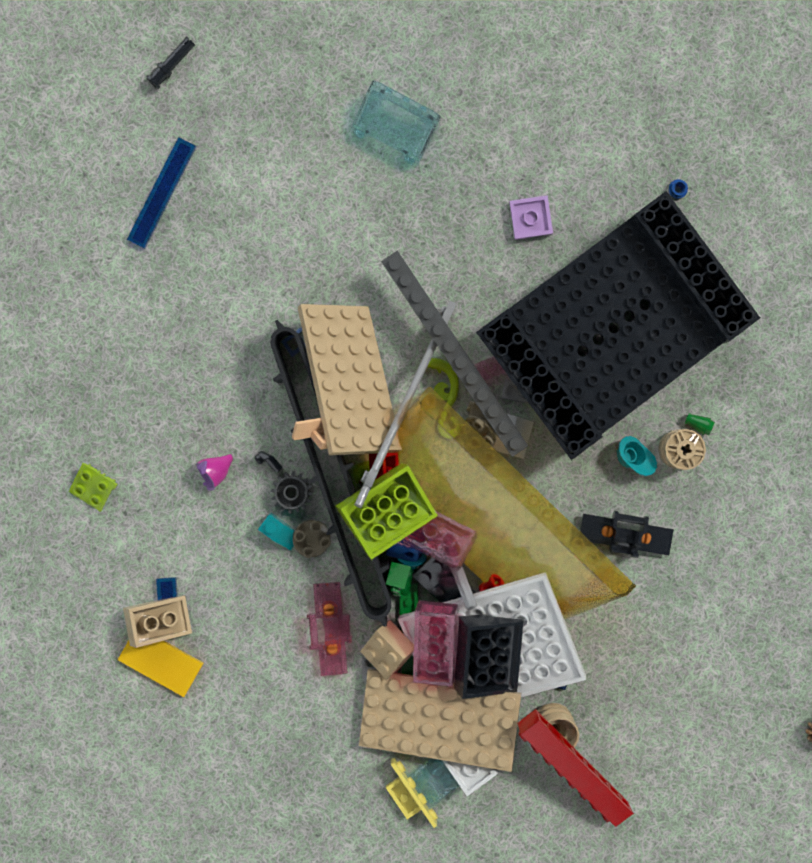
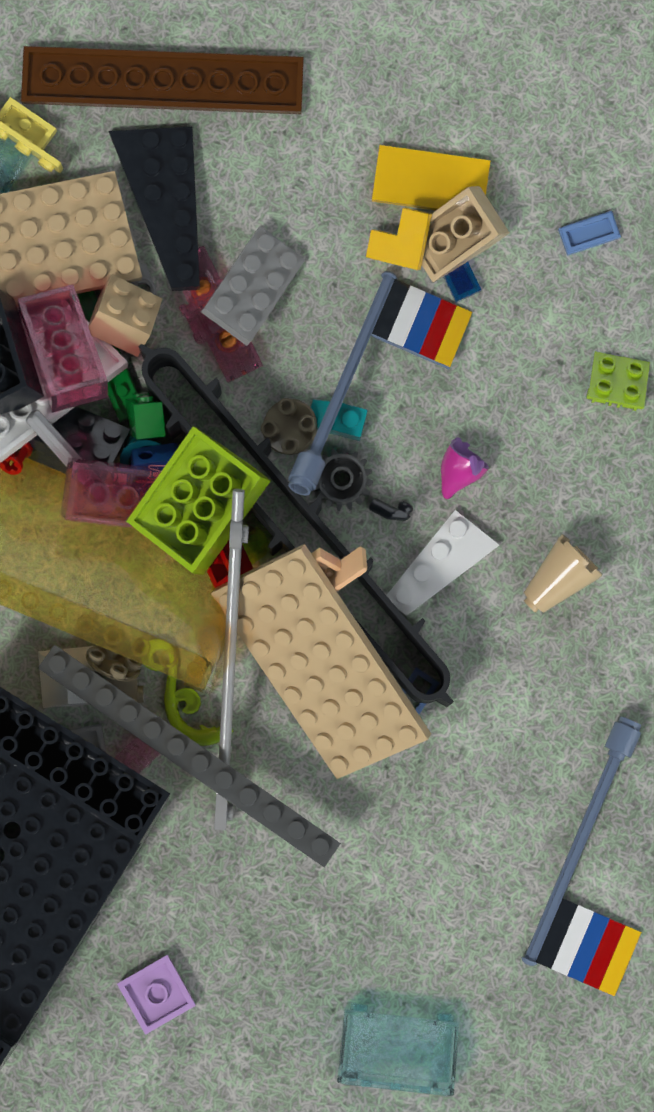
camera: 160 degrees right, 5 degrees down
(73, 588) = (589, 233): none -> medium blue tile
(178, 377) = (560, 576): none -> tan cone
(193, 624) = (407, 246): none -> yellow tile
(211, 578) = (402, 319): none -> flag
(249, 416) = (446, 557): none -> white wing
(261, 153) = (572, 936): none -> flag
(299, 637) = (253, 285): none -> light grey plate
(305, 792) = (162, 80): none -> reddish brown plate
(331, 724) = (163, 184): none -> black wing

